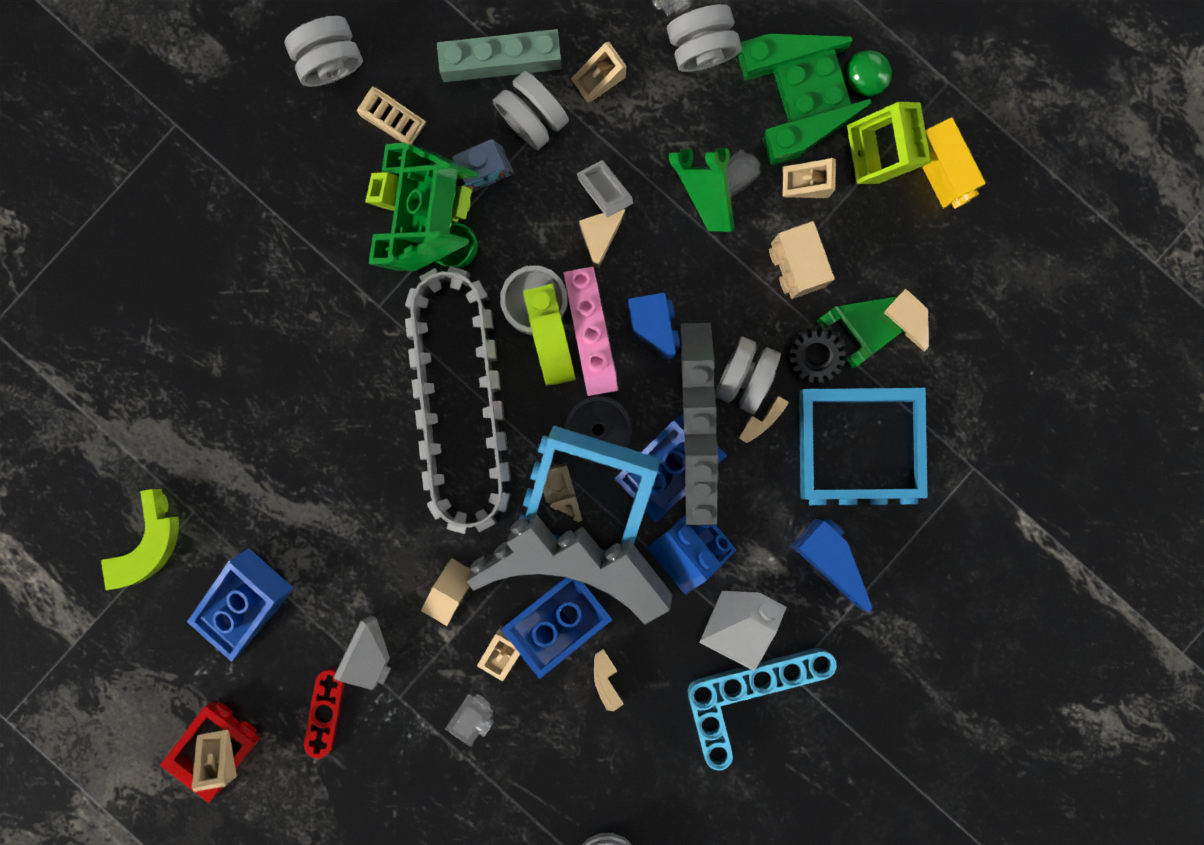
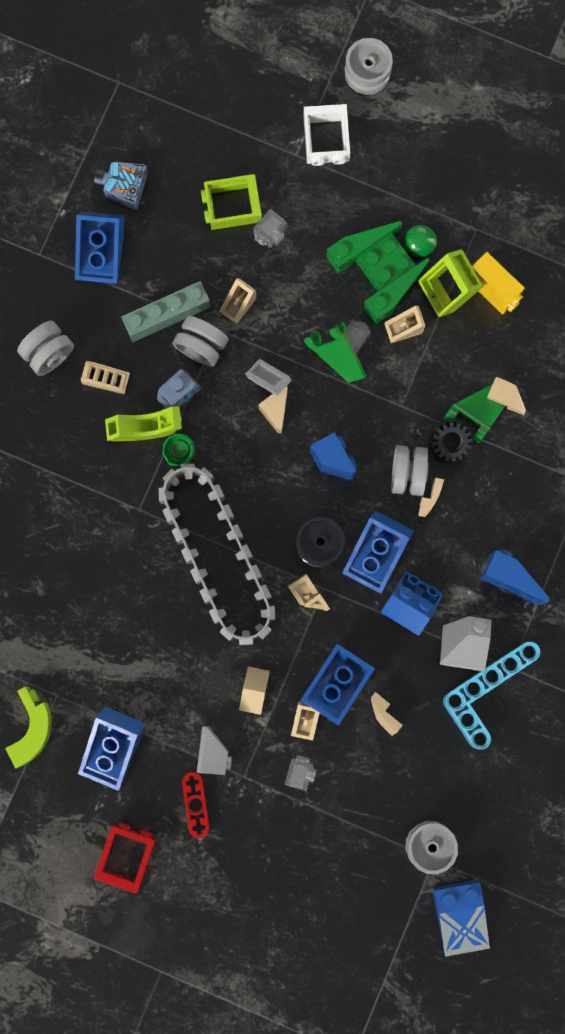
camera: 15 degrees left, 5 degrees down
(213, 761) = (131, 859): tan slope -> none
(421, 209) = (149, 432): green wedge -> none
(513, 300) = (246, 482): light grey wheel -> none
(549, 335) = (265, 488): lime arch -> none
(576, 555) = (335, 632): arch -> none
(590, 331) = (292, 476): bright pink brick -> none
(599, 452) = (323, 554): dark azure window -> none
(699, 423) = (388, 514): dark grey arch -> none
(704, 38) = (301, 254): light grey wheel -> none
(801, 260) = (418, 381): tan brick -> none
(875, 496) = (508, 530): dark azure window -> none

